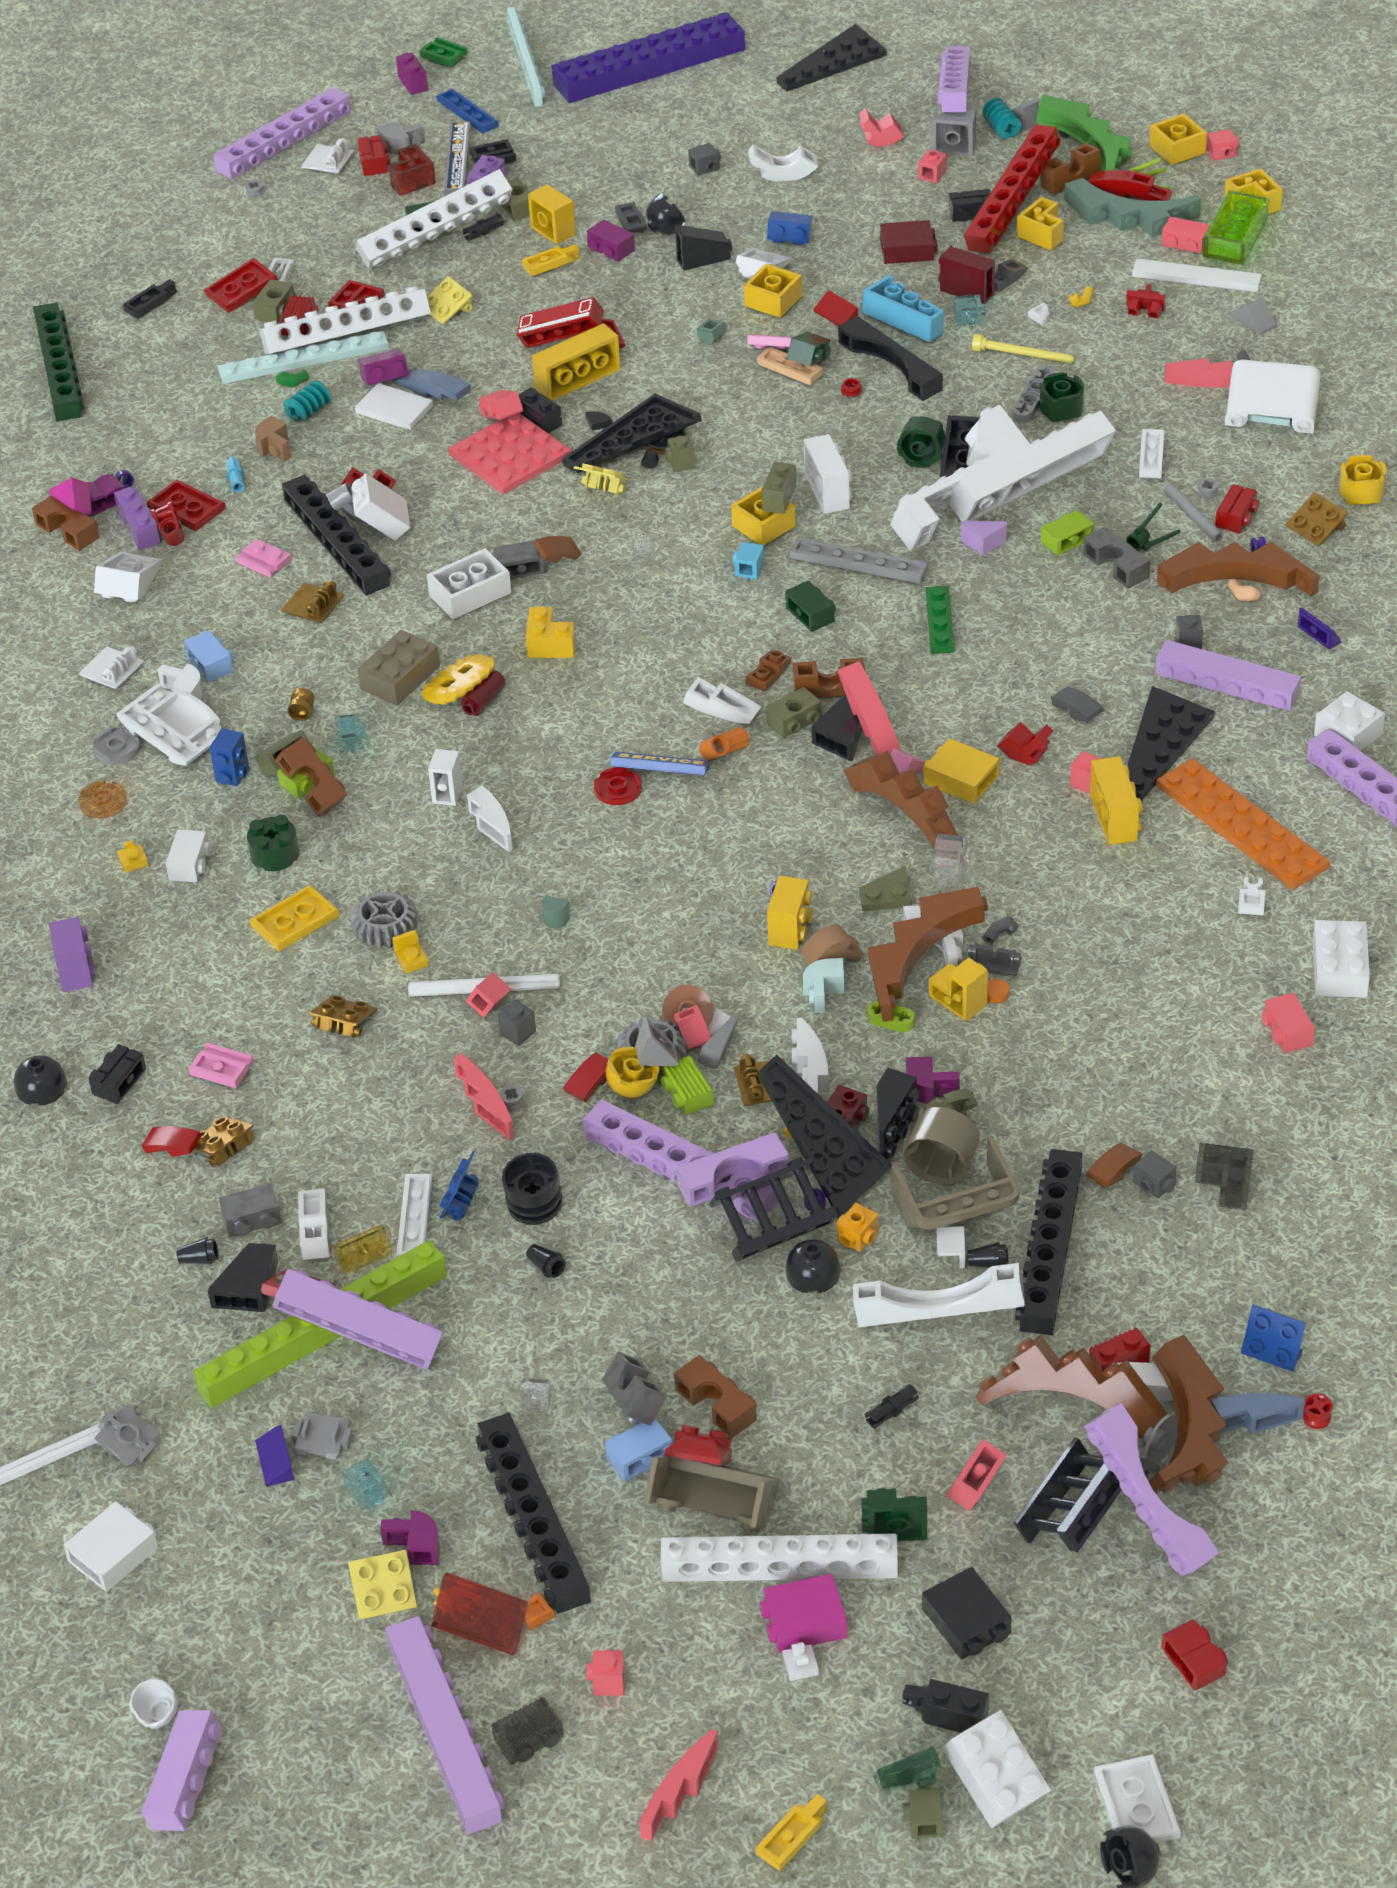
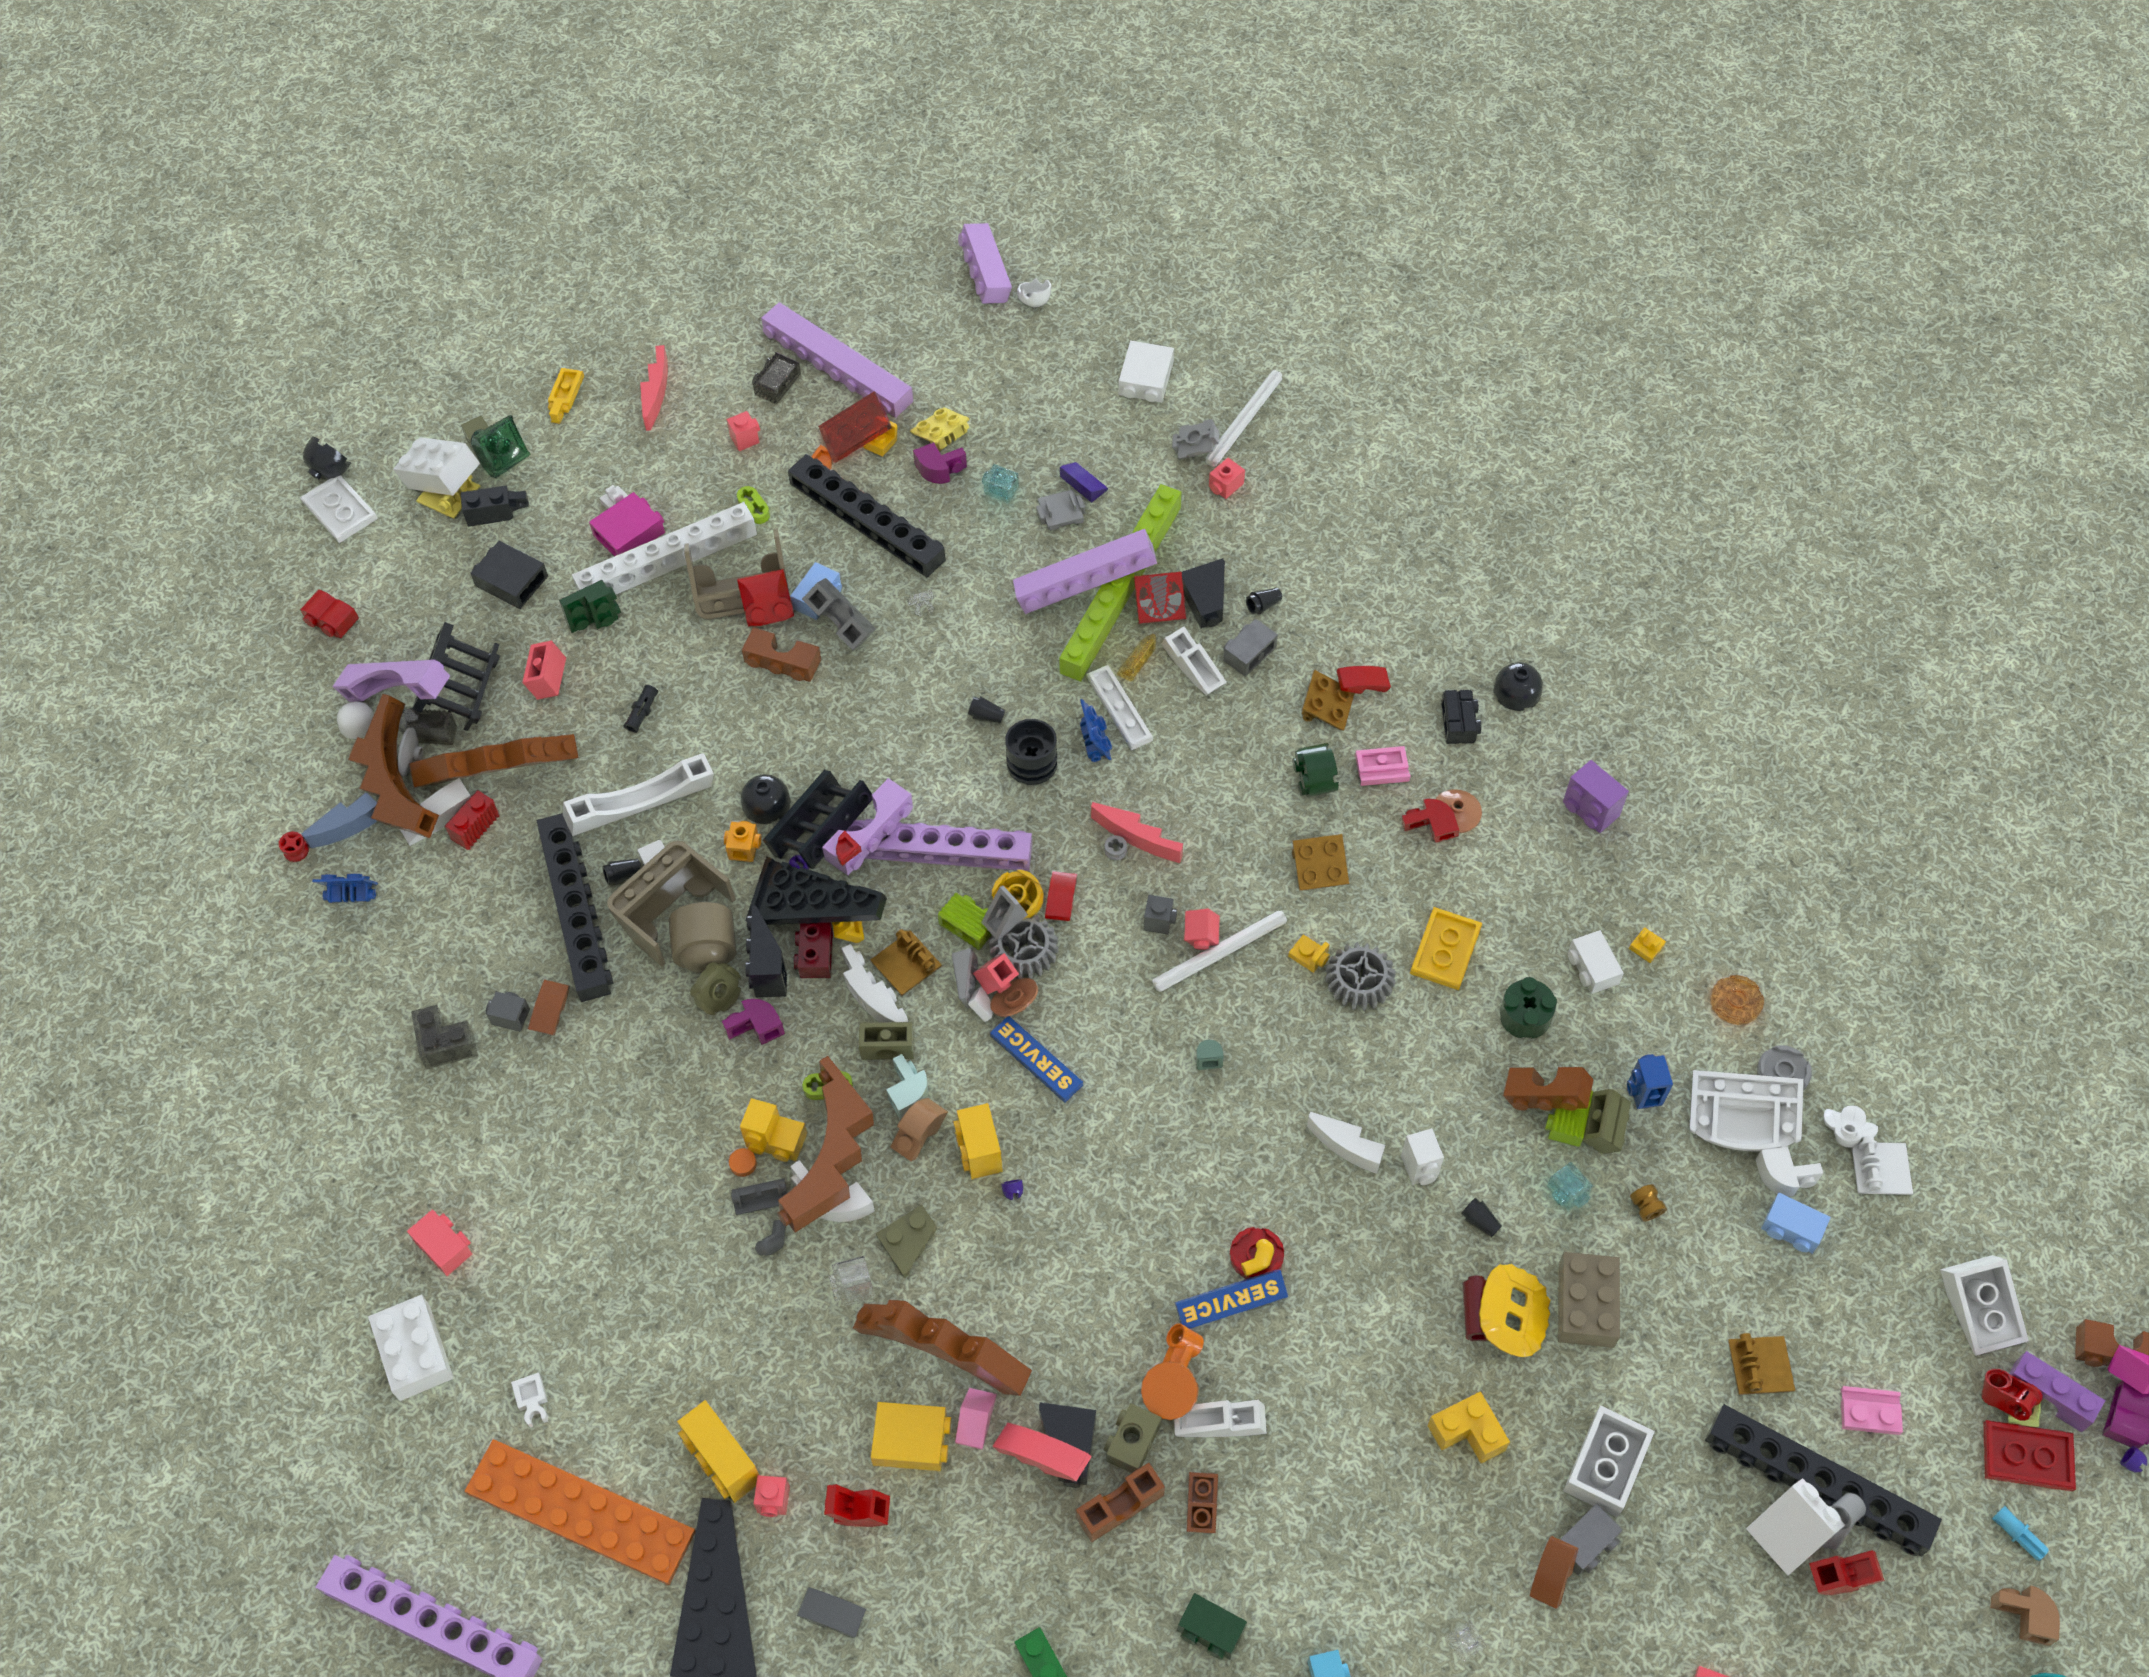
camera: 150 degrees right, 15 degrees up
(106, 695) = (1849, 1125): none -> white plate
(130, 1385) = (1226, 478): none -> coral brick
(188, 1013) = (1469, 814): none -> nougat dish
(218, 1000) = (1437, 816): none -> red brick
(286, 1069) = (1316, 770): none -> dark green brick
(430, 741) = (1481, 1217): none -> black cone
(620, 770) = (1262, 1258): none -> yellow arm
(652, 1586) = (757, 502): none -> lime beam
(697, 966) = (1036, 1059): none -> blue tile
(748, 718) = (1169, 1390): none -> orange tile
(767, 1139) = (846, 848): none -> red tile
(823, 1014) = (886, 1040): none -> olive brick
(1210, 1518) = (354, 719): none -> white hair

